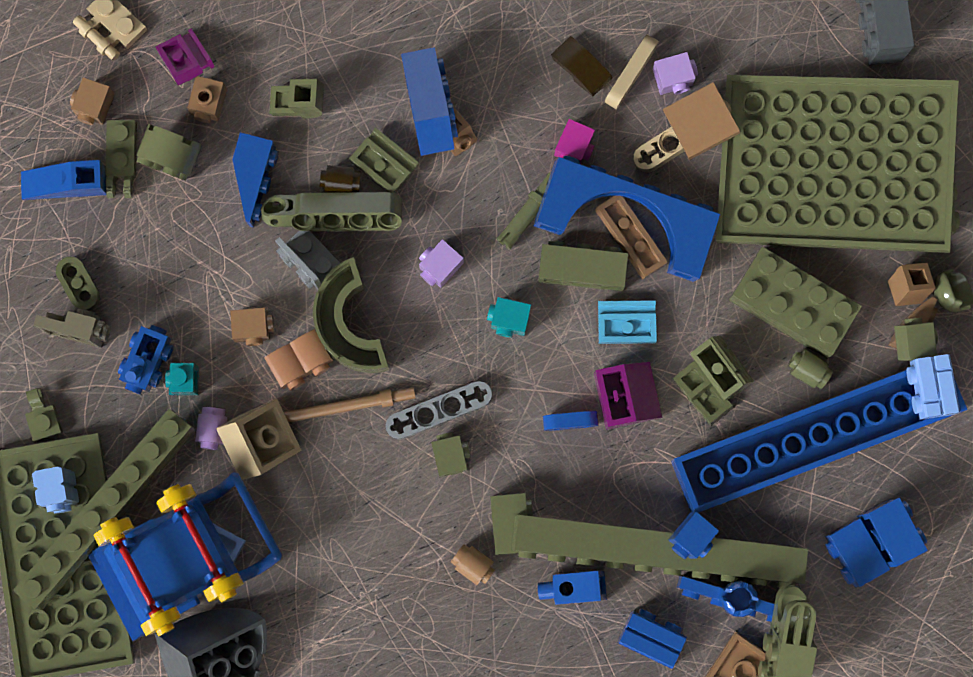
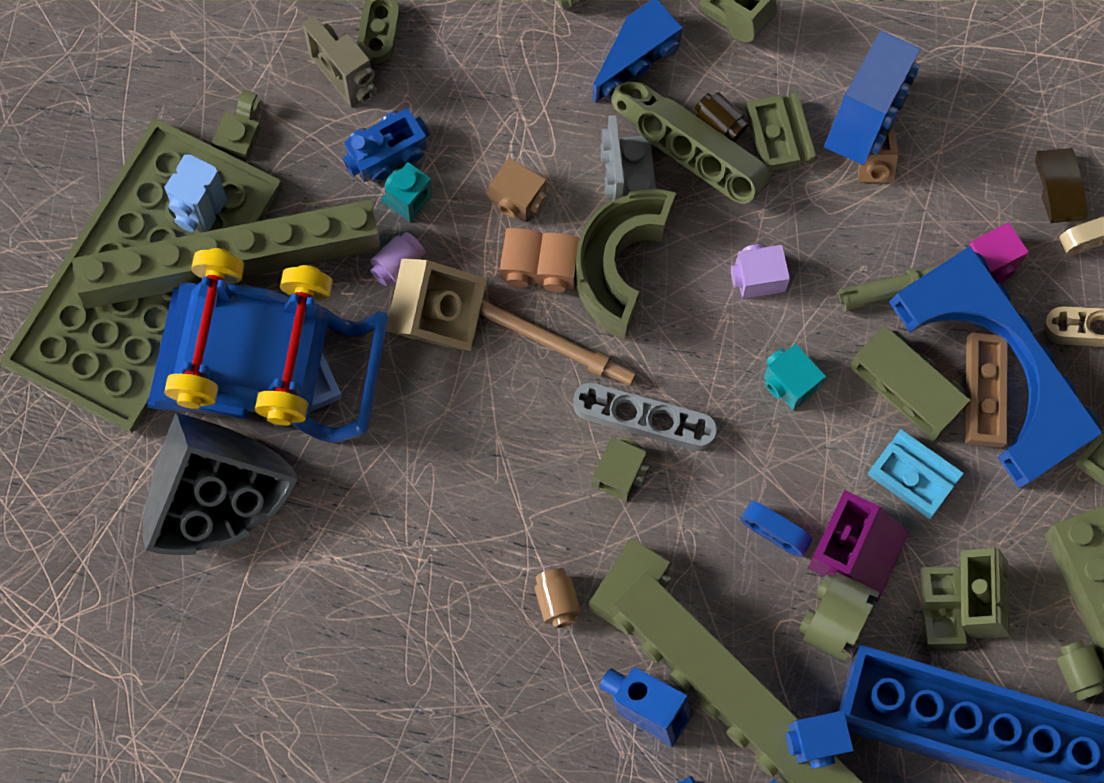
camera: 35 degrees right, 10 degrees down
(648, 448) = (838, 615): none -> olive brick

